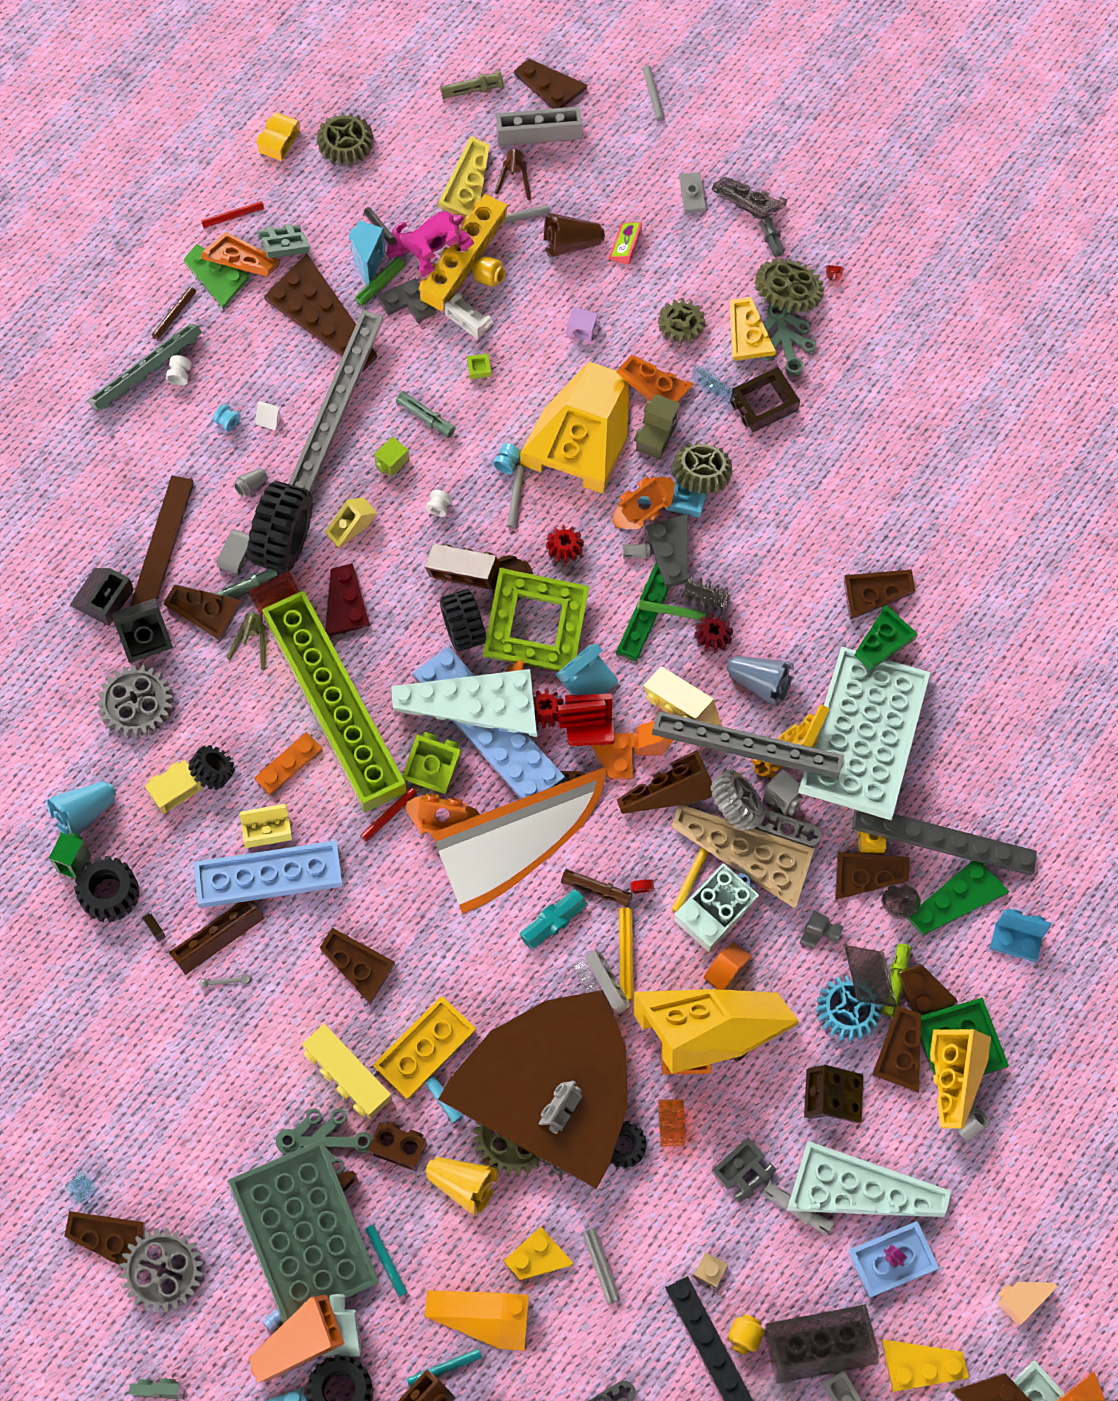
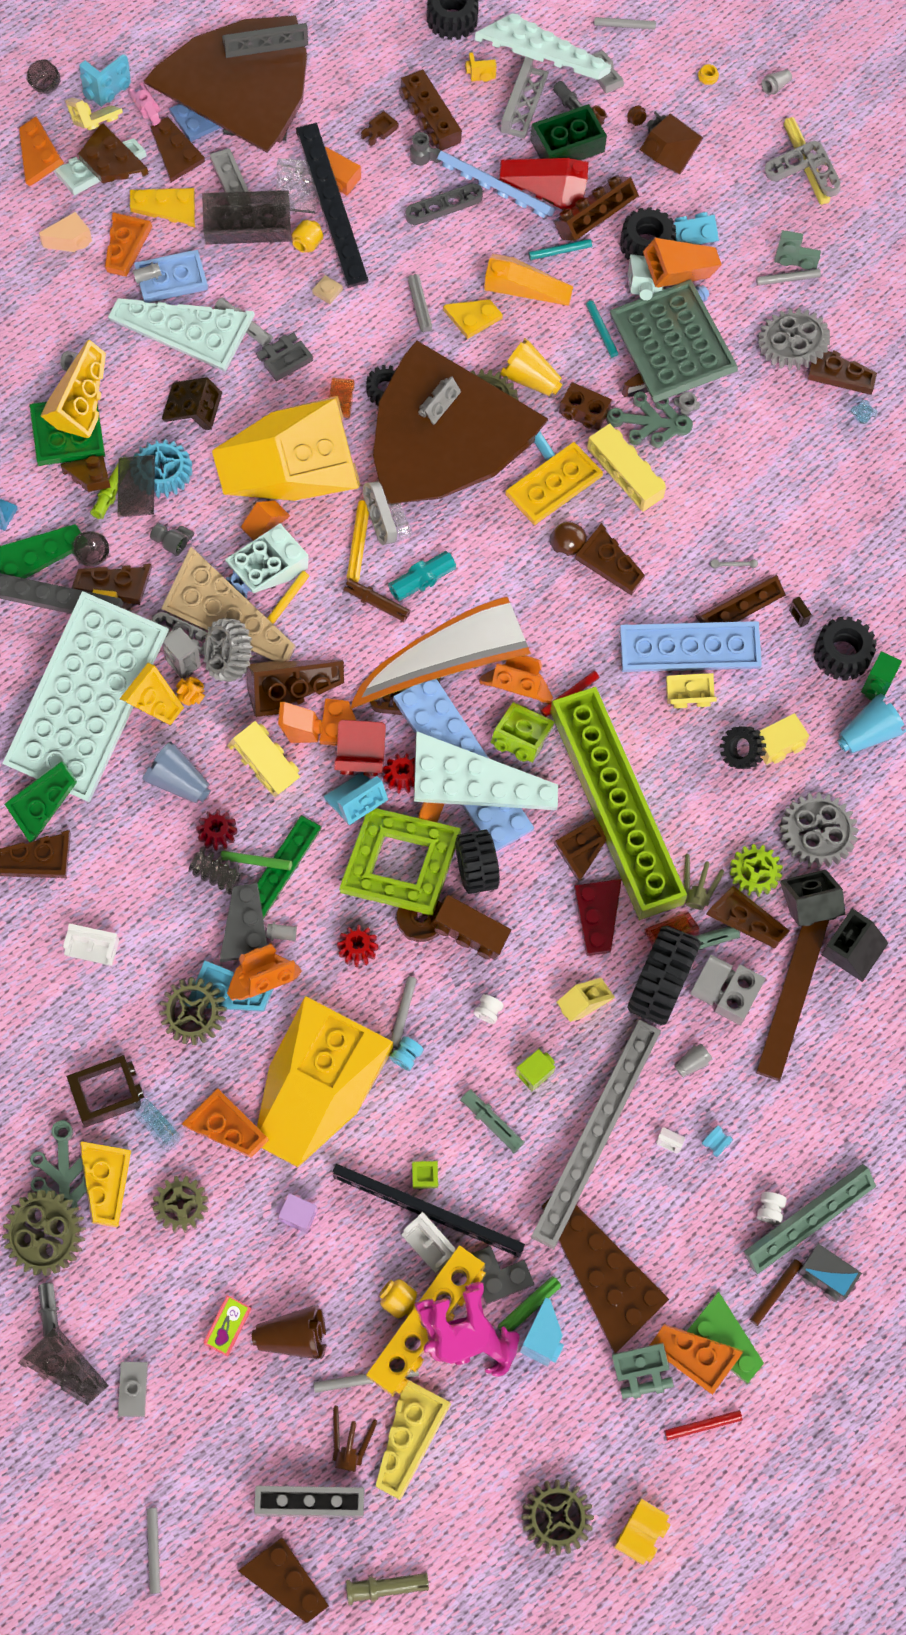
camera: 175 degrees left, 0 degrees up
(128, 326) = (829, 1273): none -> dark grey brick
(168, 1366) = (787, 277): none -> light grey bar
(202, 662) = (765, 872): none -> lime gear
(204, 539) = (742, 996): none -> light grey brick
(288, 763) = (665, 753): orange plate -> none
(366, 659) = (581, 847): none -> reddish brown wing
(377, 222) = (524, 1374): pearl dark grey bar -> none
(404, 985) = (568, 538): none -> reddish brown hair
(473, 338) = (431, 1211): none -> black tile
(582, 717) = (367, 753): red tile -> none
(642, 886) = (333, 595): red tile -> none
(658, 426) = (233, 1065): olive brick -> none
(748, 745) = (209, 675): dark grey plate -> none
(806, 521) = (91, 944): none -> white hinge
(894, 1256) = (170, 269): magenta plate -> none
(901, 1051) = (123, 427): reddish brown wing -> none
(919, 1248) = (147, 273): none -> light grey pin
(955, 1300) = (126, 241): none -> orange wing

